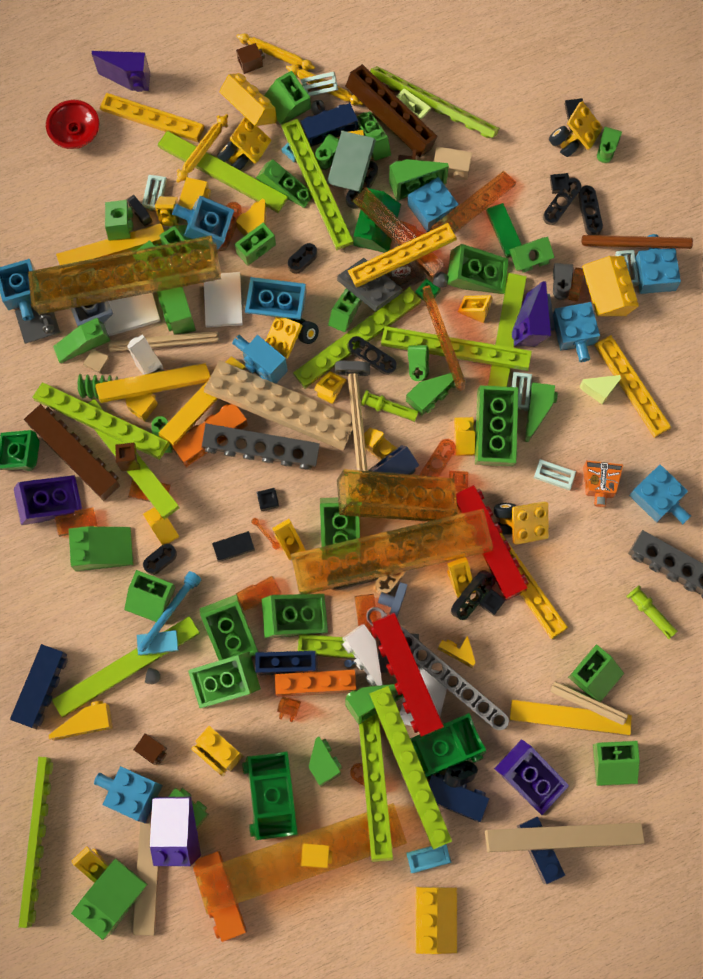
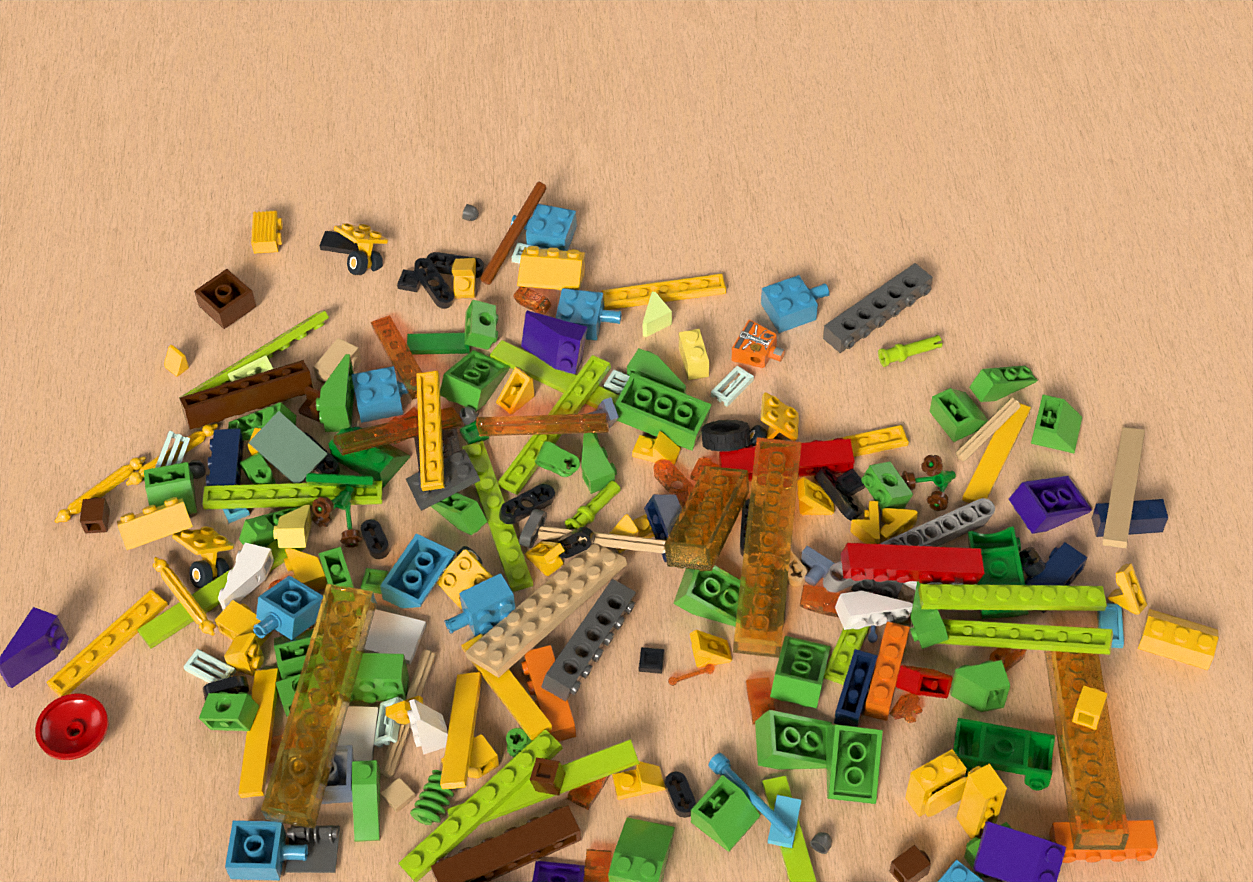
camera: 70 degrees left, 20 degrees down
(150, 330) = (387, 728): none -> light aqua tile
(156, 342) = (399, 710): none -> yellow bracket
(203, 787) = (980, 800): none -> yellow brick
(232, 181) = (248, 573): none -> white slope
(233, 546) = (694, 711): black tile -> none
(266, 271) = (373, 579): none -> bright green tile
(282, 196) = (294, 528): none -> light yellow slope
(306, 213) = (324, 507): none -> reddish brown plant
(309, 715) = (924, 681): none -> red brick
(335, 211) = (340, 480): none -> green tile
(346, 403) = (576, 546): none -> black beam
(409, 49) = (175, 361): none -> yellow slope
(447, 632) = (867, 529): none -> yellow slope
(461, 865) = (1130, 594): none -> yellow slope
(473, 381) = (607, 407): none -> sand blue tile
(478, 55) = (225, 298): none -> reddish brown brick
(500, 478) = (725, 435): none -> black tyre
(503, 631) = (886, 486): none -> bright green brick
(513, 665) = (934, 469): none -> reddish brown plant
(560, 55) = (266, 232): none -> yellow brick
(562, 279) = (516, 307): dark grey piece -> none
(570, 432) = (693, 354): none -> light yellow brick
(577, 222) = (464, 277): none -> yellow slope
(609, 142) = (389, 225): bright green piece -> none
(648, 703) = (1000, 382): none -> bright green slope
(649, 200) = (470, 213): none -> dark grey hinge

